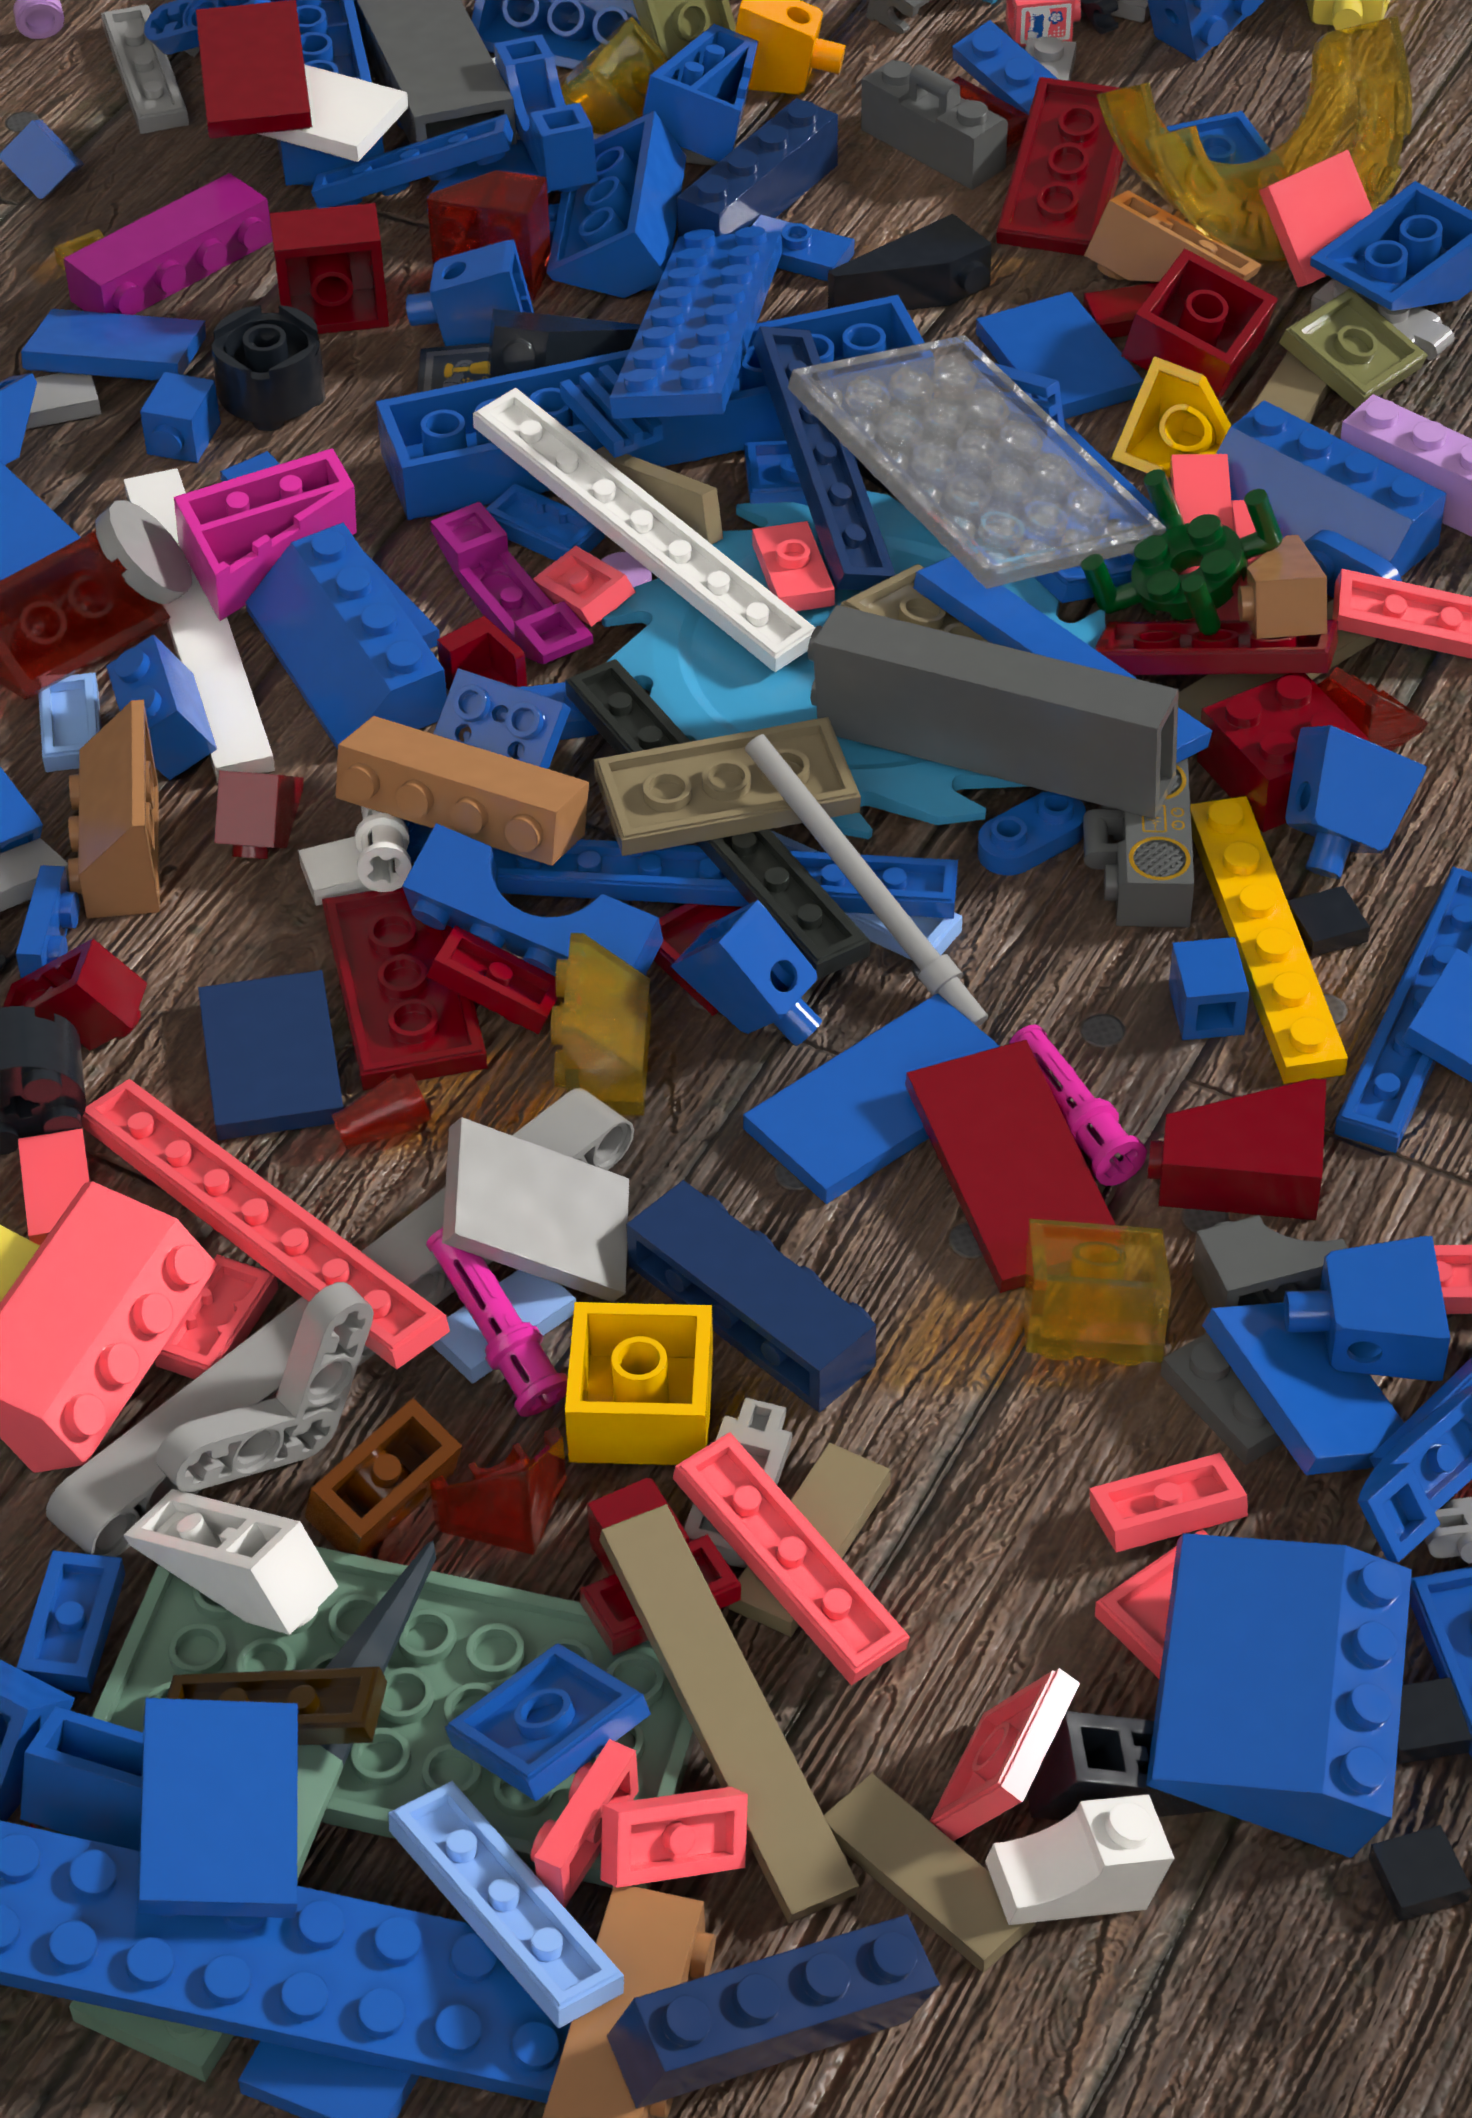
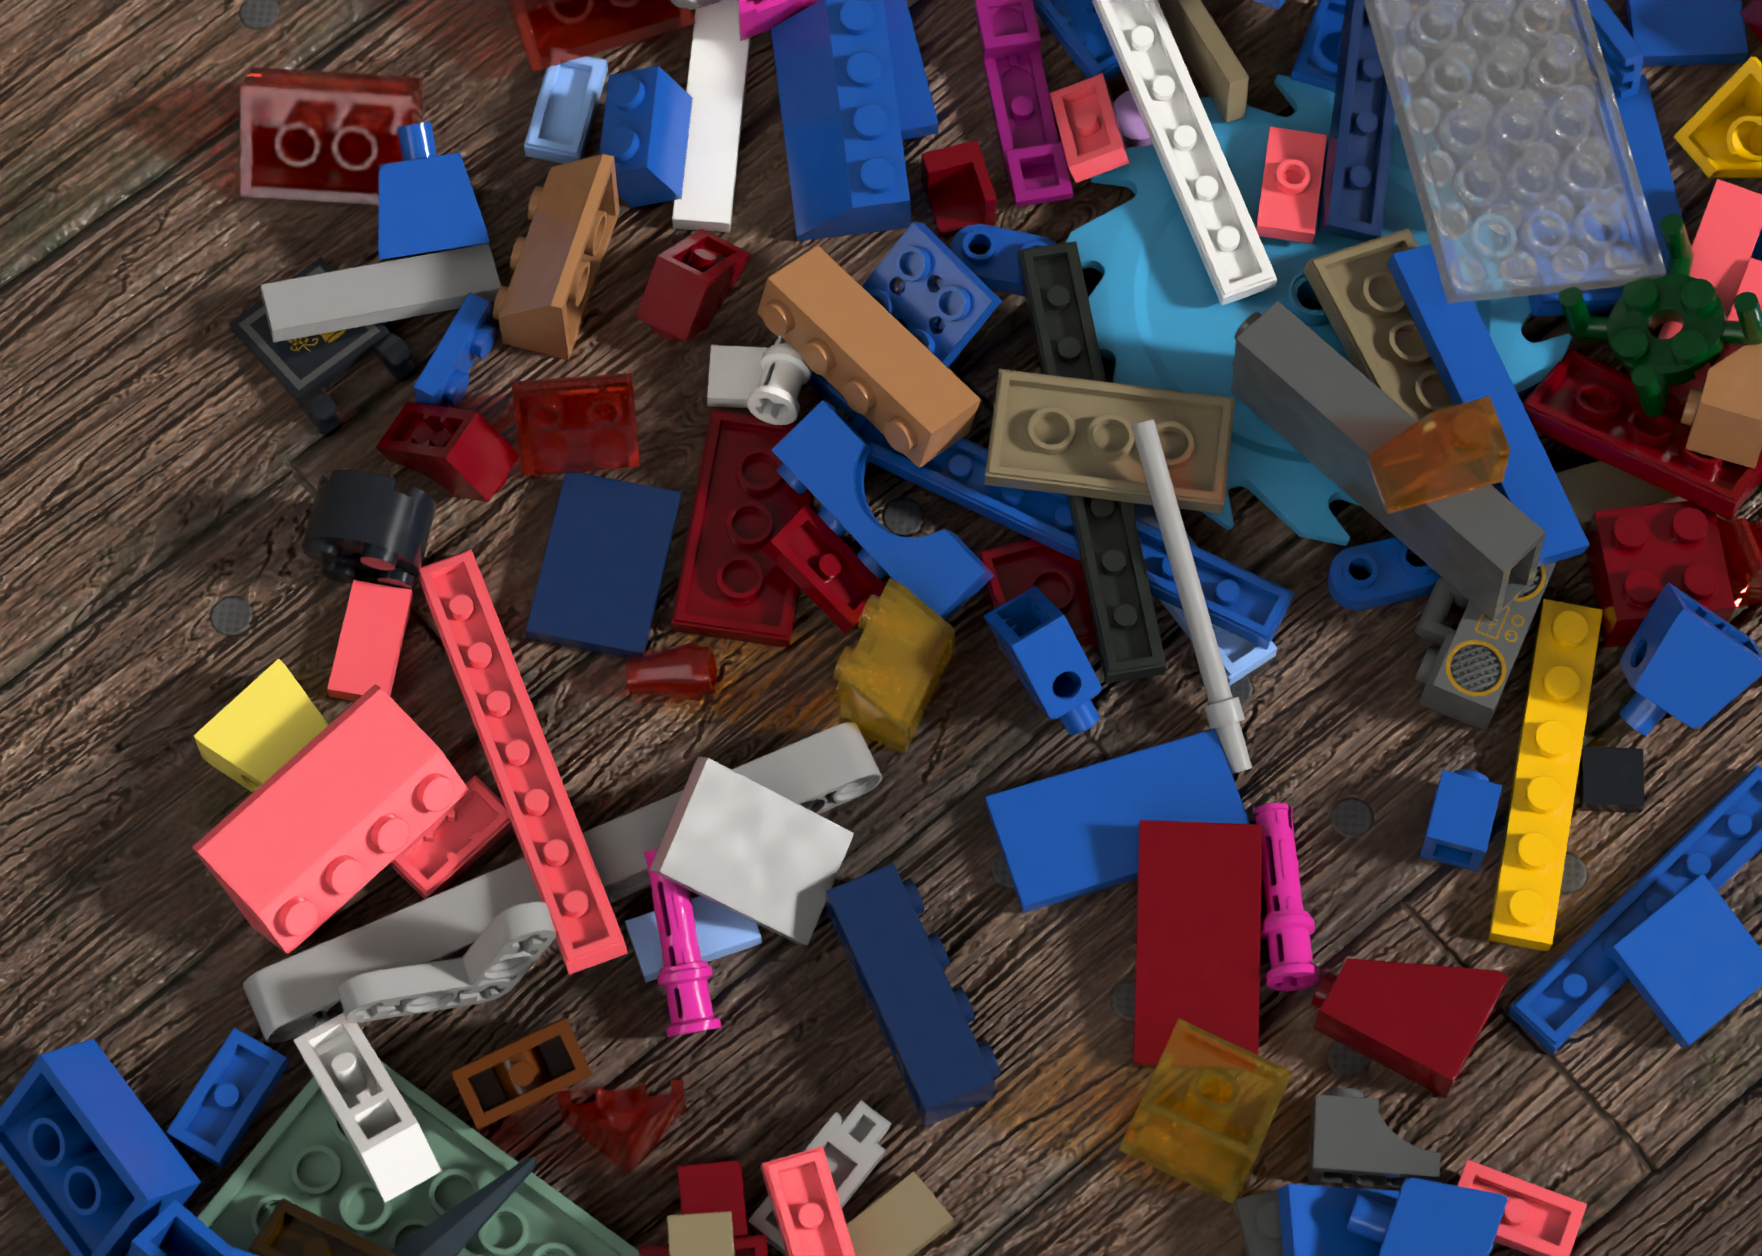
camera: 20 degrees right, 20 degrees up
(193, 926) = (576, 423): none -> clear red slope
(639, 1383) = (773, 1057): yellow brick -> none
(1055, 651) = (1441, 456): none -> clear orange slope

